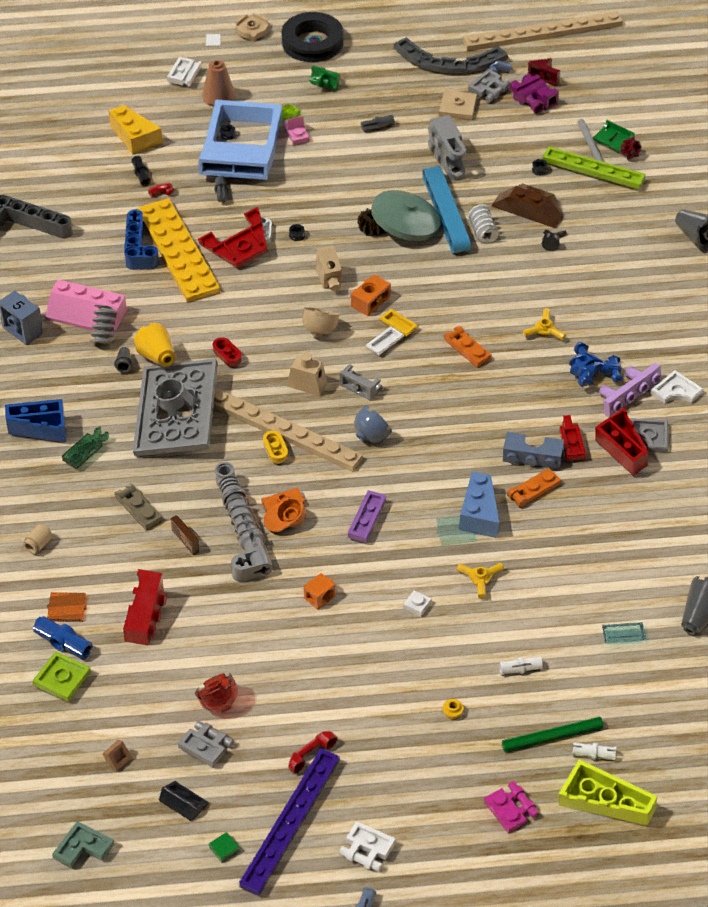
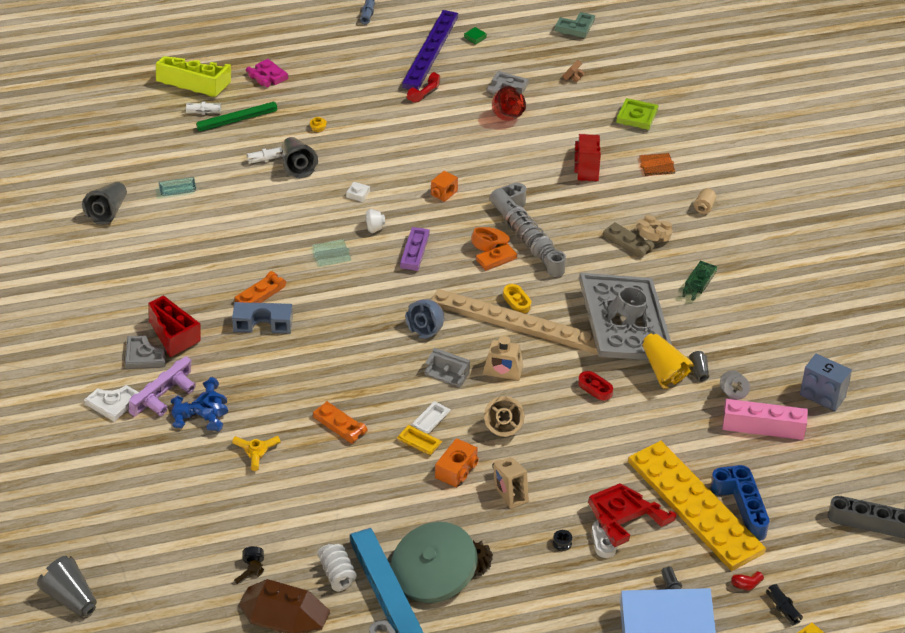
camera: 170 degrees right, 5 degrees down
(37, 419) = (754, 291): blue wedge -> none
(62, 637) = (649, 136): blue piece -> none
(100, 501) = (654, 229): none -> tan plate
(182, 800) = (513, 57): black slope -> none
(185, 534) = (576, 216): reddish brown tile -> none
(369, 840) = (370, 42): white plate -> none
(405, 551) = (374, 220): none -> white cone
(479, 507) = (311, 259): medium blue wedge -> none
(480, 576) = (304, 212): yellow piece -> none
(483, 645) = (298, 158): none -> dark grey cone
(572, 438) = (224, 334): red hinge -> none

